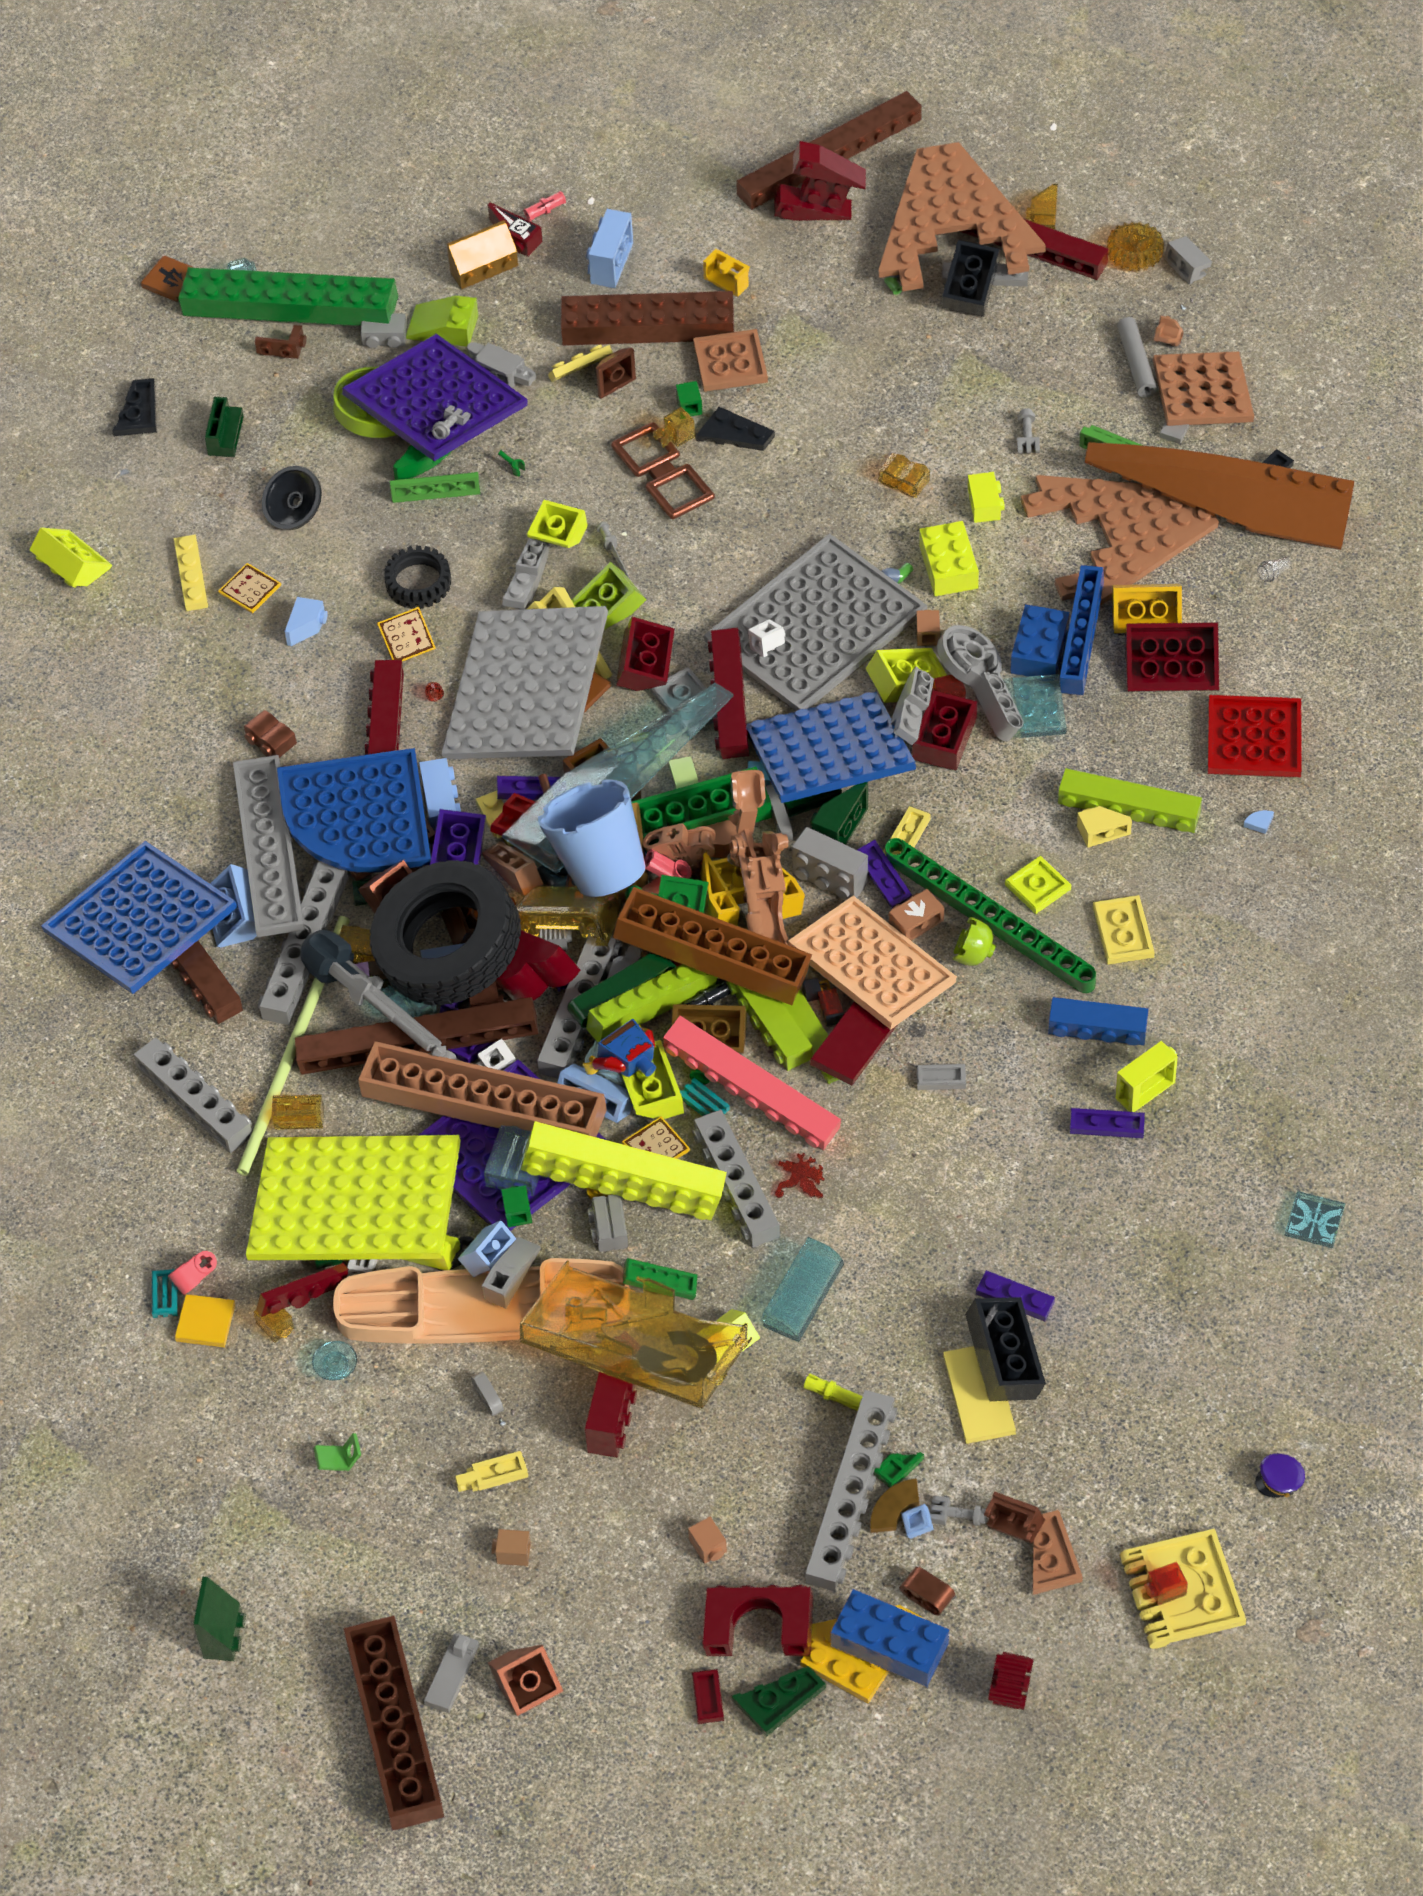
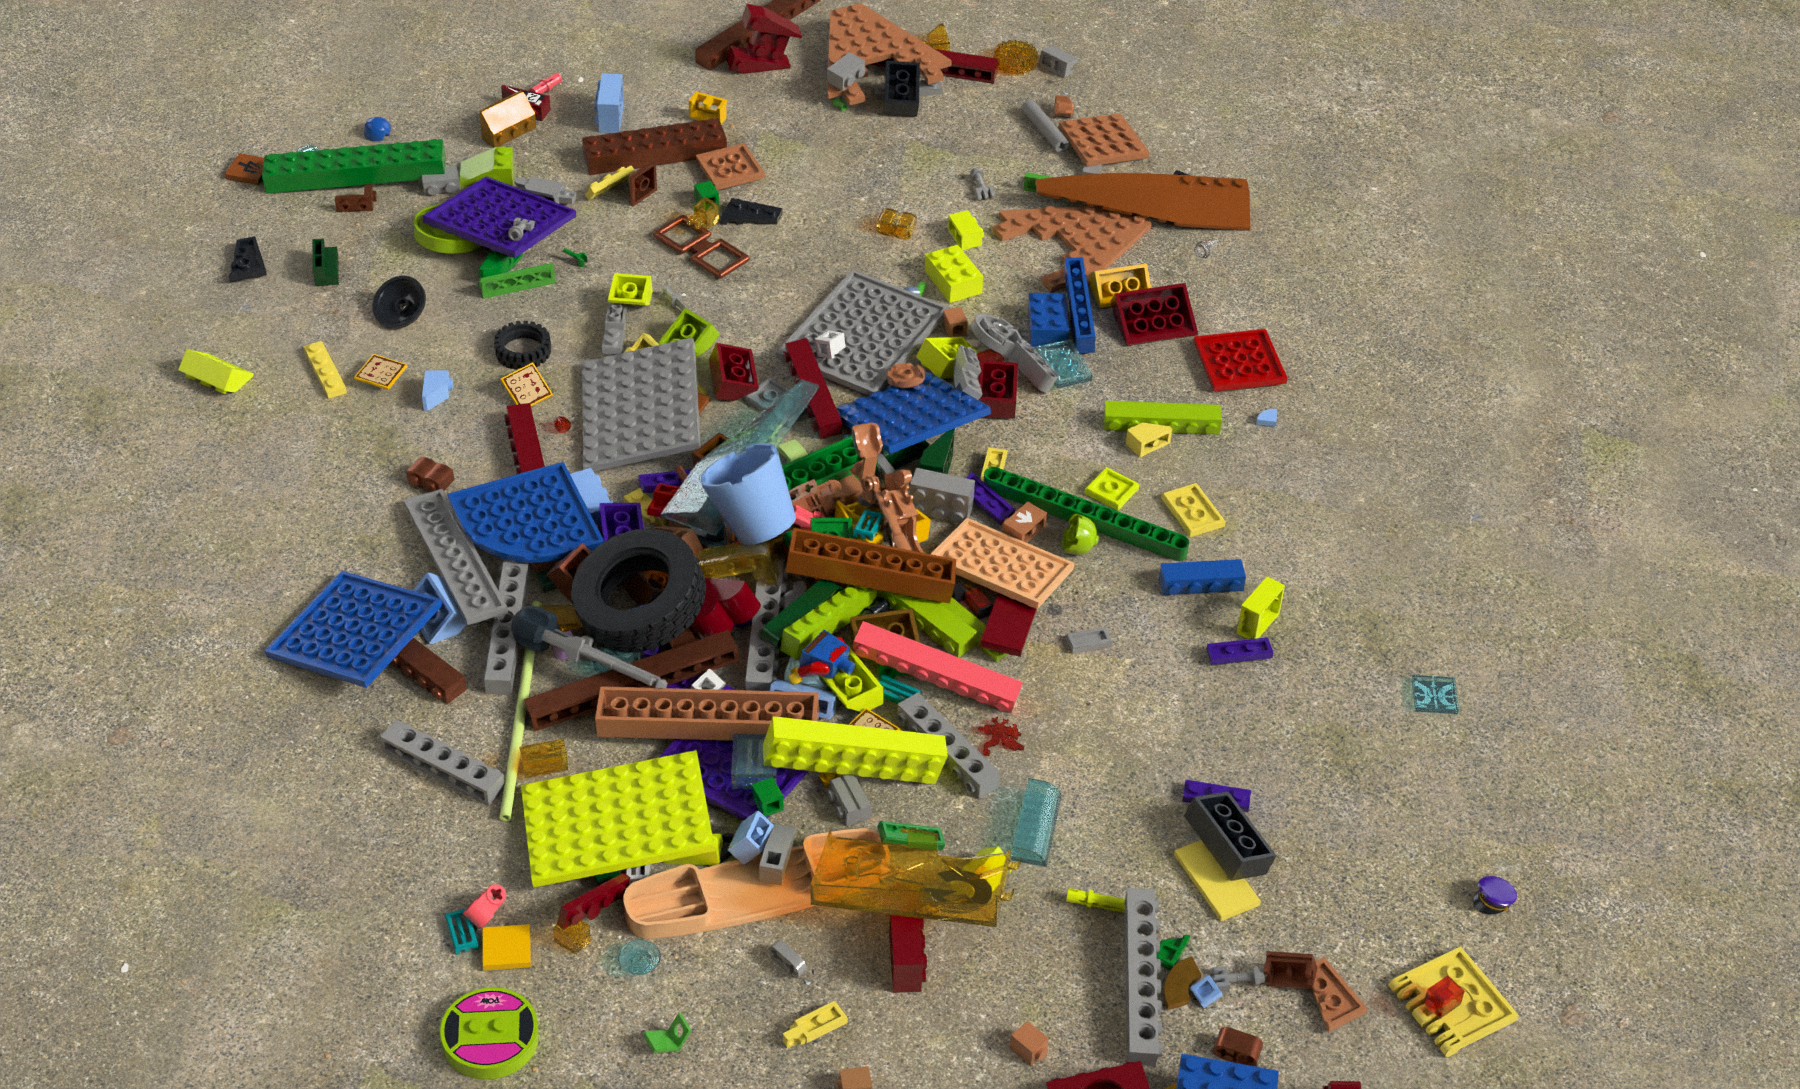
camera: 20 degrees left, 10 degrees down
(162, 1412) = (489, 1033): none -> brick
(330, 242) = (377, 128): none -> blue hair
(710, 899) = (865, 532): none -> teal tile
(841, 694) = (905, 375): none -> nougat tile
(905, 246) = (846, 71): none -> light grey brick

